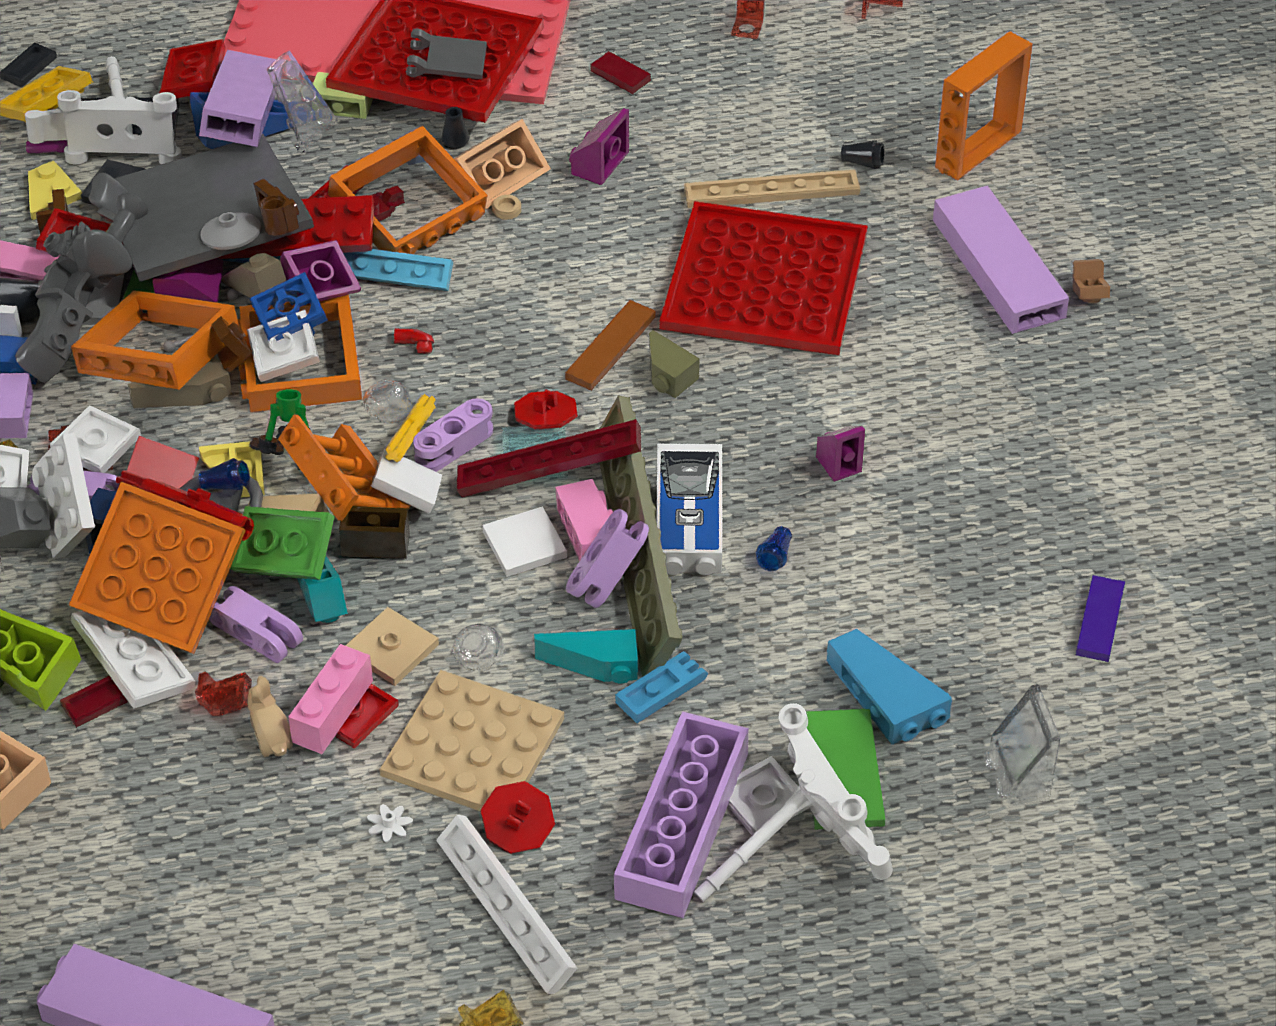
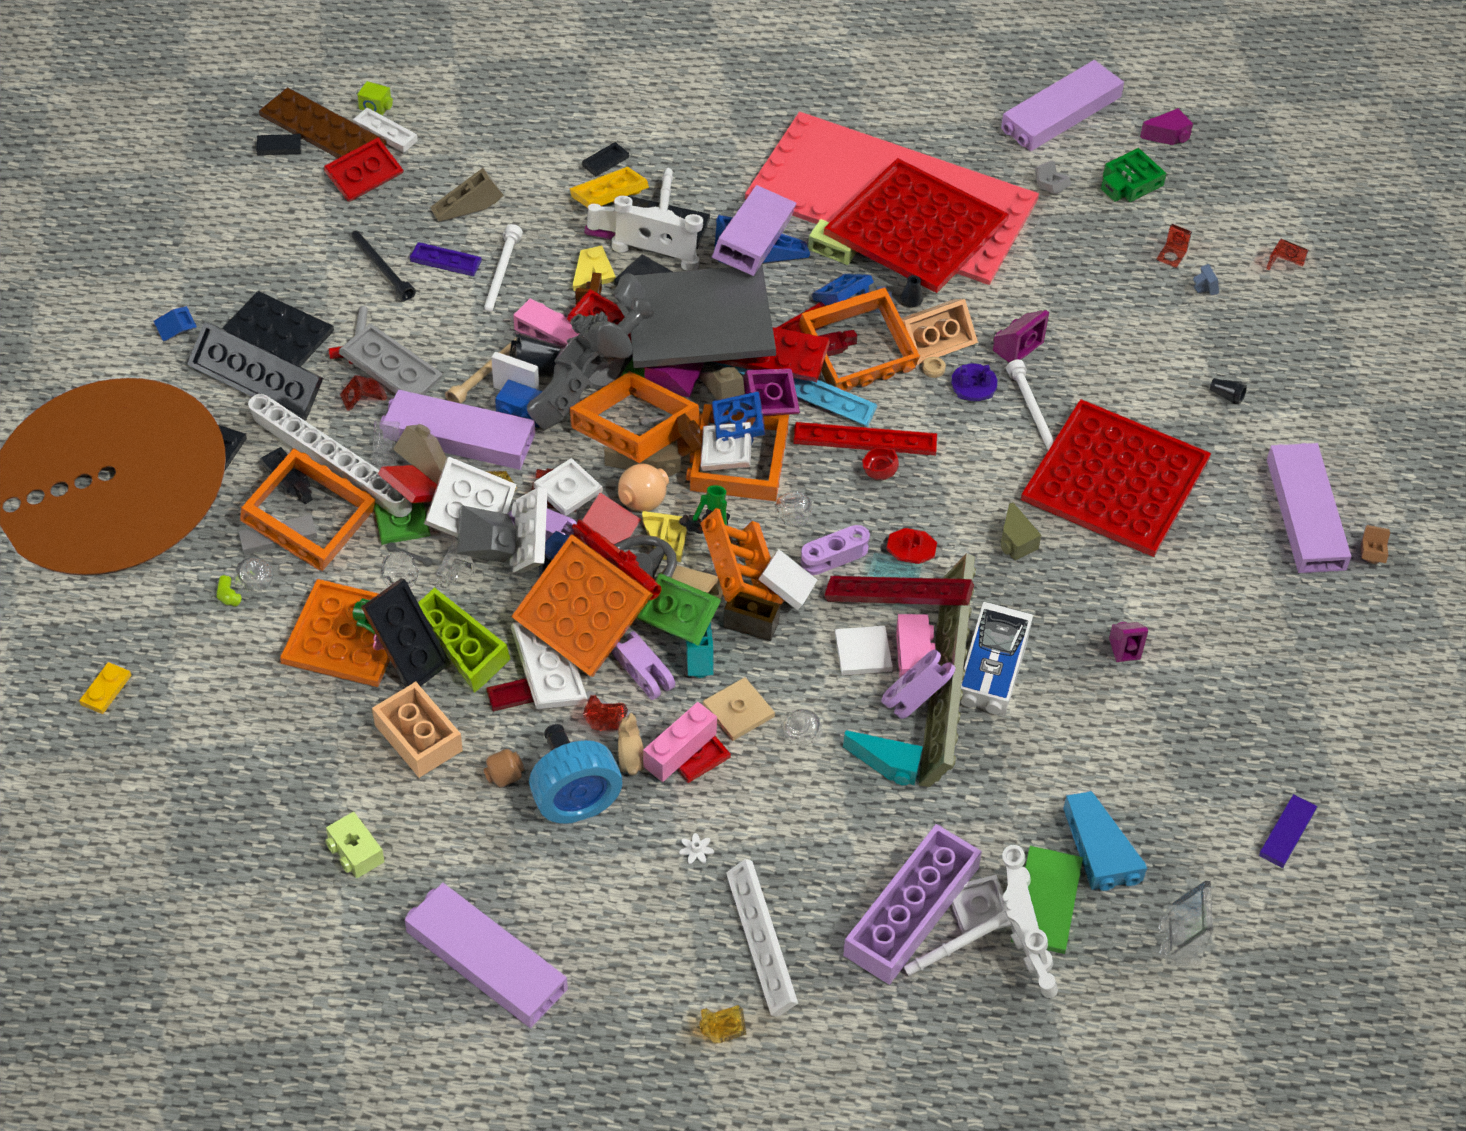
camera: 15 degrees right, 5 degrees up
(112, 788) = (504, 768): none -> medium nougat head
(190, 419) = (642, 487): none -> light nougat brick
(192, 68) = (725, 194): red tile -> none
(210, 773) = (574, 778): none -> dark azure wheel
(225, 476) = (653, 544): clear blue cone -> none
(230, 230) = (712, 344): light grey dish -> none
(276, 209) = (749, 337): reddish brown plate -> none
(304, 105) = (801, 244): clear wing -> none
(369, 141) = (845, 285): none -> blue piece
(410, 428) = (801, 538): yellow axle -> none
(414, 336) = (835, 463): red arm -> none
(447, 56) = (923, 231): dark grey flag -> none
(449, 304) = (865, 438): none -> red tile
(470, 741) = (775, 804): tan plate -> none
(478, 326) = (880, 463): none -> red hair
(517, 817) = (790, 871): red piece -> none
(561, 212) = (974, 382): none -> dark purple plate
(609, 188) = (1017, 370): none -> white piece
(610, 345) = (978, 504): dark orange tile -> none
(620, 72) = (1057, 272): dark red tile -> none
(660, 687) = (929, 796): dark azure hinge -> none
(773, 188) = (1147, 401): tan tile -> none
(774, 550) = (1050, 708): clear blue cone -> none
(798, 43) = (1206, 281): none -> sand blue tile
(1011, 61) = (1365, 346): orange window -> none

